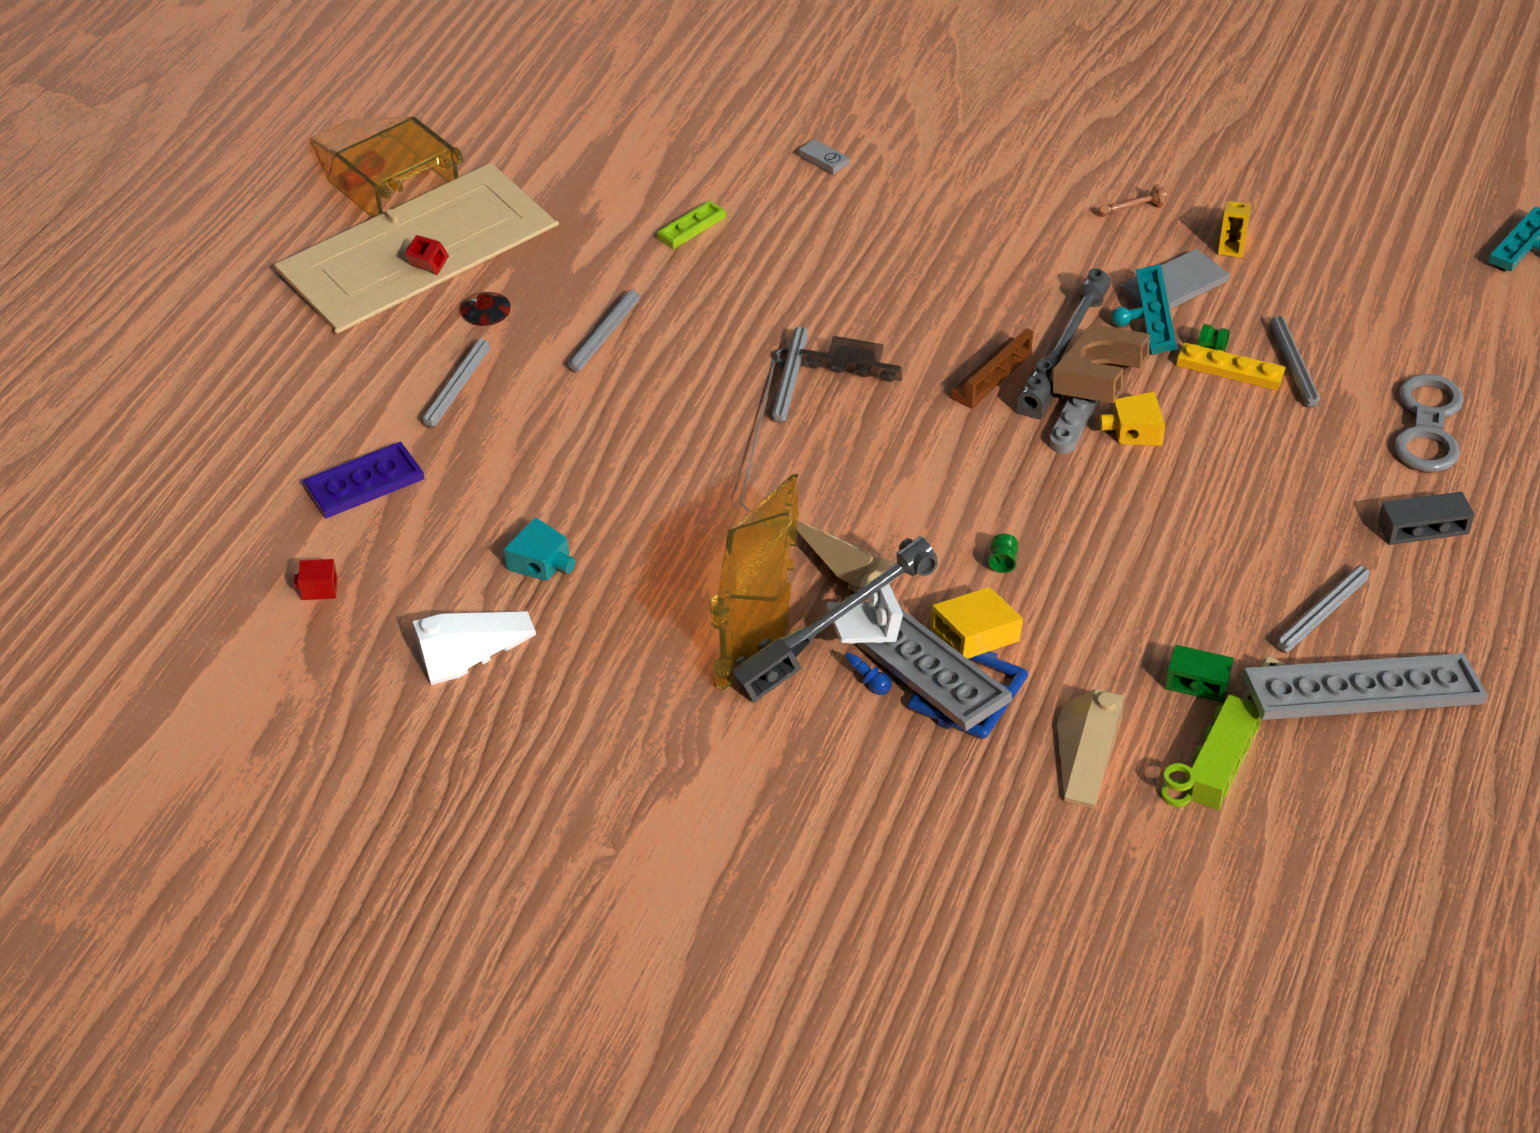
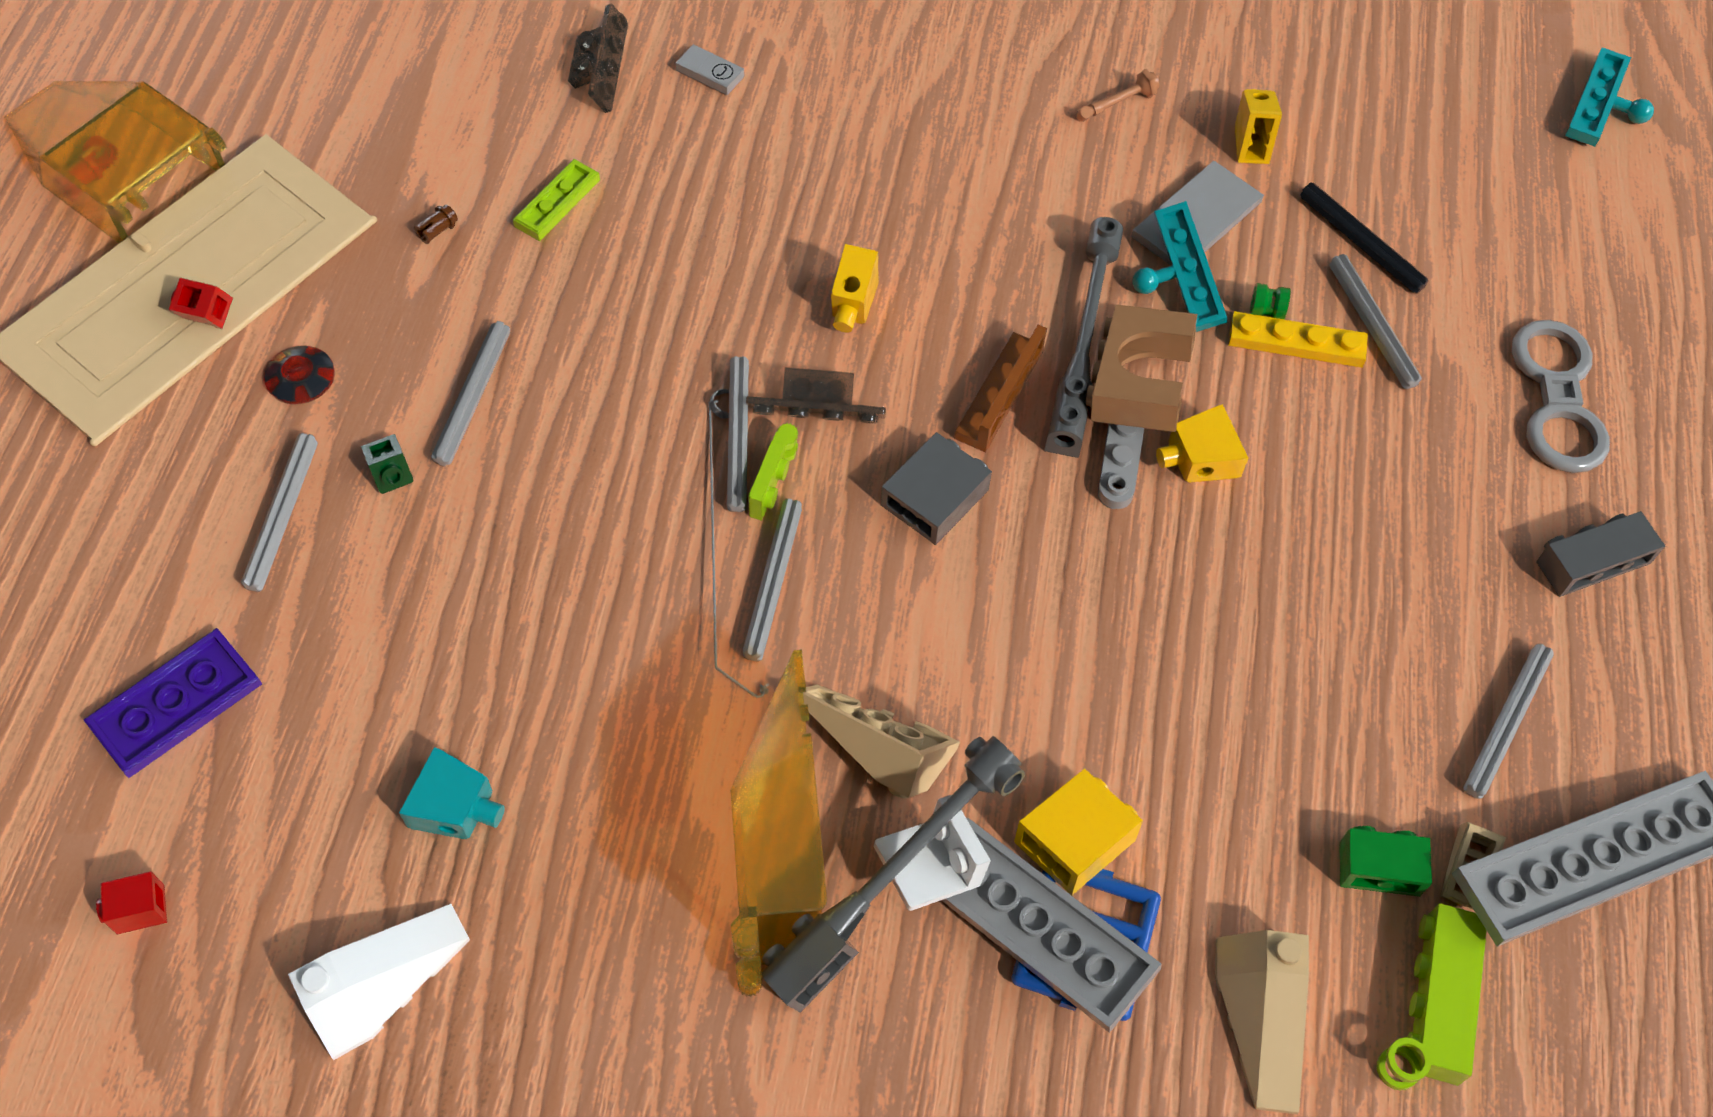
camera: 15 degrees left, 15 degrees up
(536, 364) = (387, 464): none -> dark green bracket
(600, 229) = (440, 220): none -> reddish brown pin
(743, 140) = (599, 58): none -> clear smoke bracket
(799, 452) = (772, 580): none -> light grey axle
(808, 397) = (773, 468): none -> lime hinge
(878, 682) = (963, 946): blue bar -> none
(897, 293) = (854, 287): none -> yellow torso
(926, 421) = (936, 488): none -> dark grey brick
(1003, 553) = (1084, 697): green wheel -> none
(1302, 309) = (1364, 238): none -> black axle

